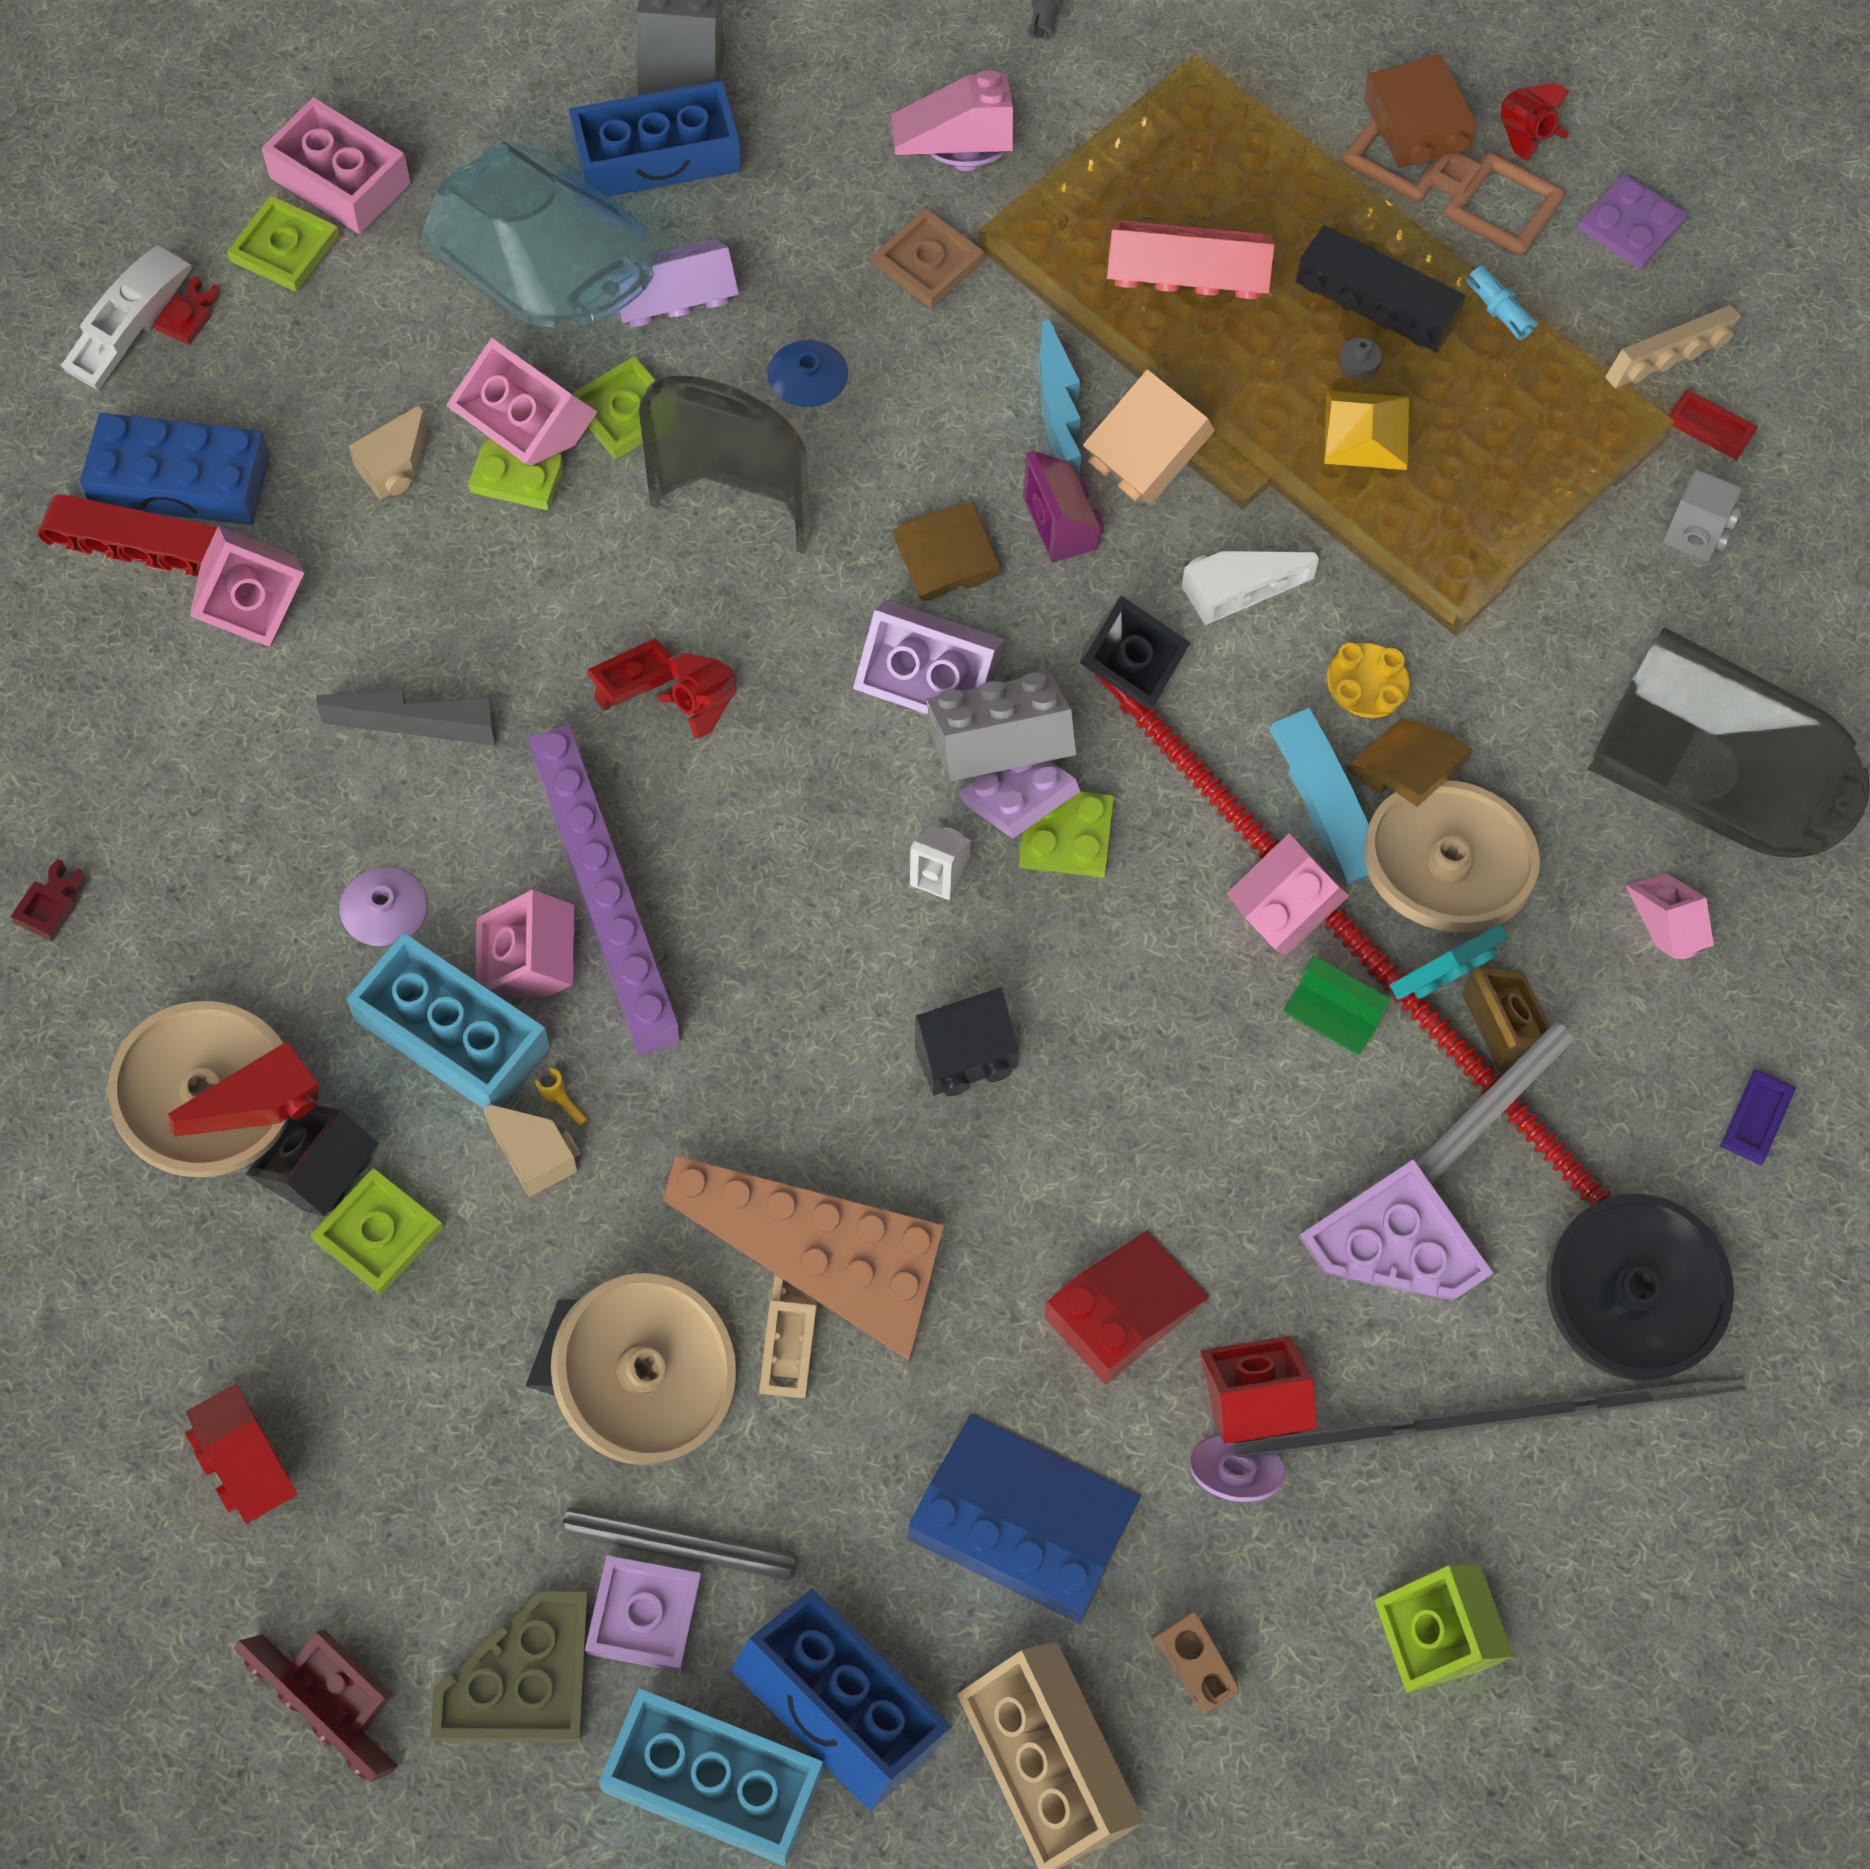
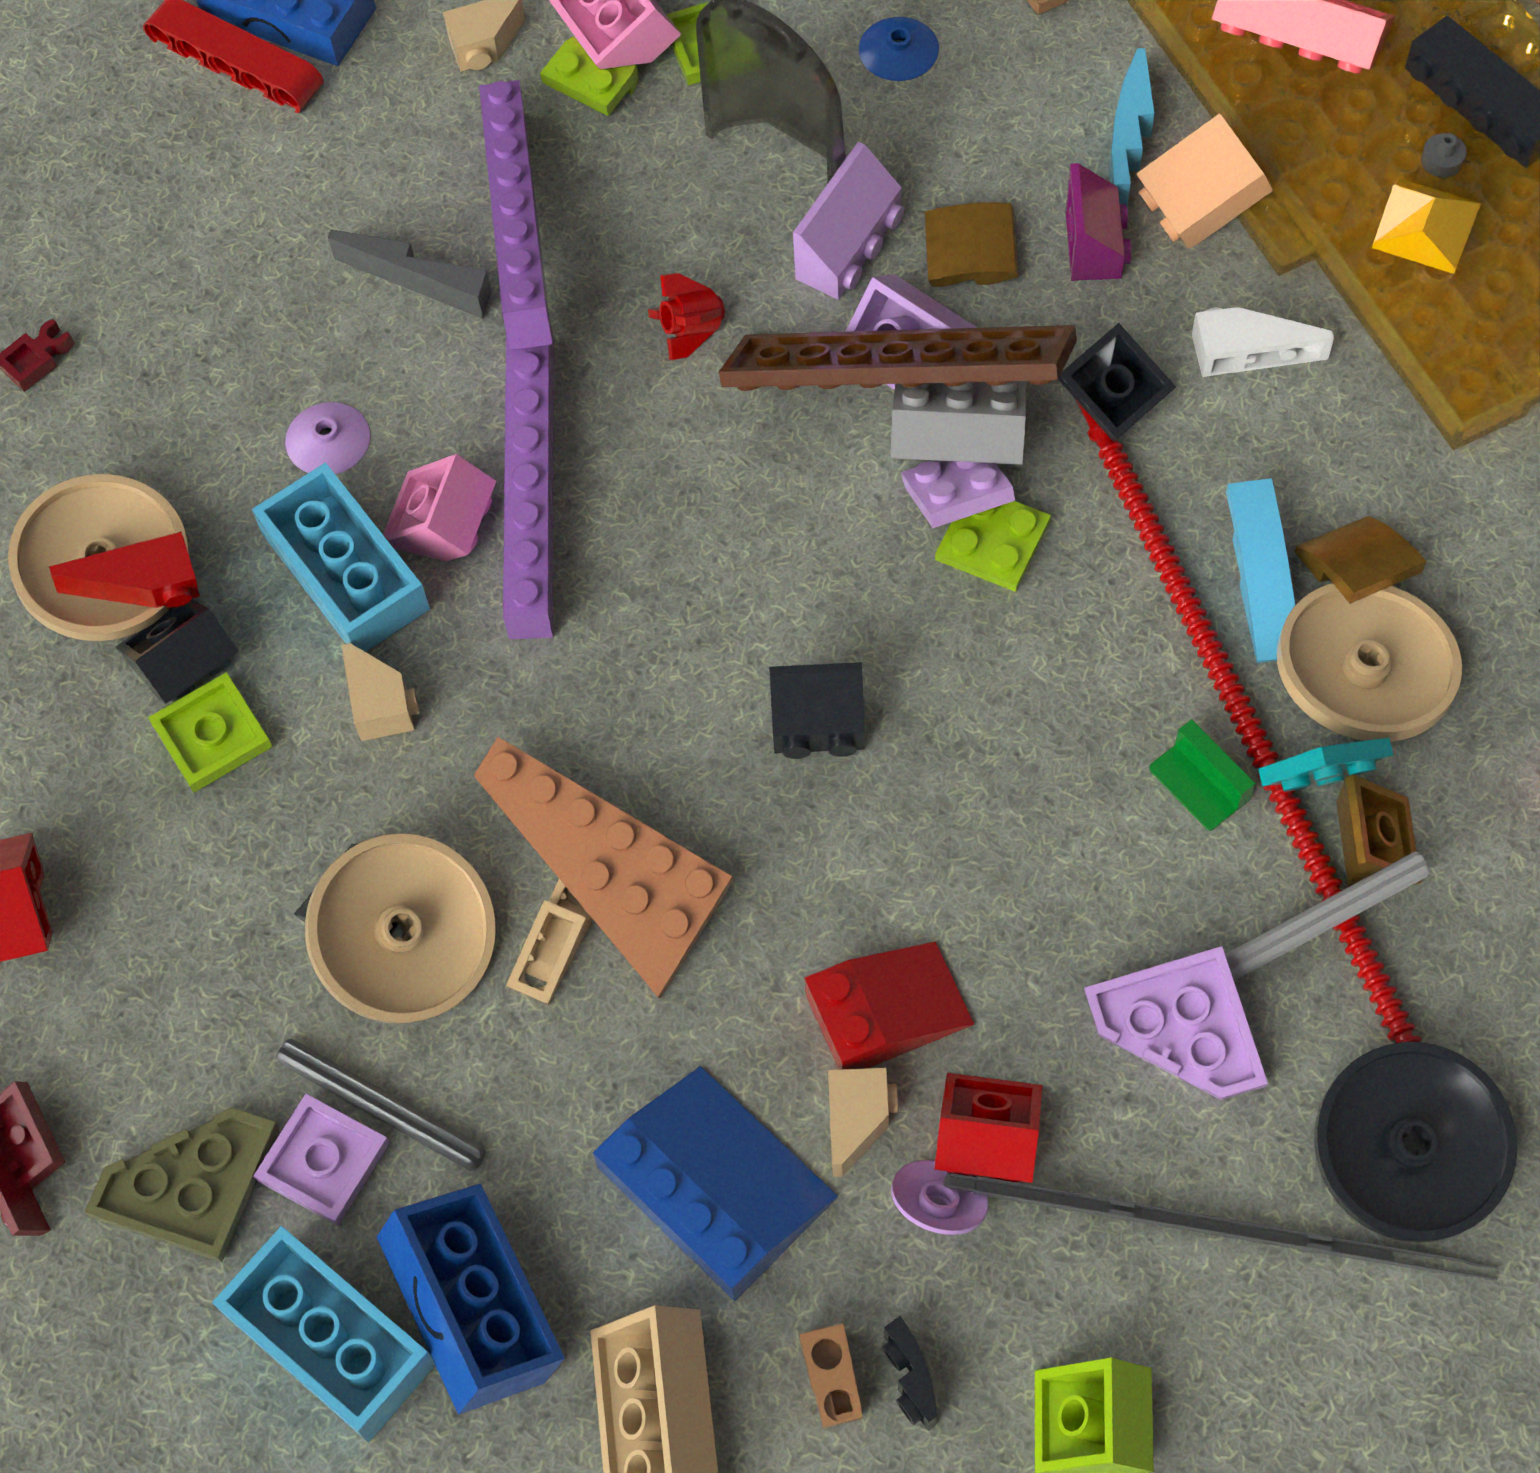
camera: 25 degrees right, 0 degrees up
(245, 586) = (303, 116): bright pink slope -> none
(502, 635) = (515, 216): none -> medium lavender brick
(557, 1094) = (421, 652): yellow hand -> none
(631, 673) = (626, 282): red plate -> none
(827, 563) = (847, 224): none -> lavender slope
(927, 682) = (900, 357): none -> reddish brown plate
(938, 860) = (855, 530): white slope -> none
(1134, 1411) = (858, 1113): none -> tan slope
(1280, 1652) = (916, 1387): none -> black slope
(1287, 895) = (1187, 656): bright pink slope -> none
(1368, 679) = (1347, 469): yellow dish -> none

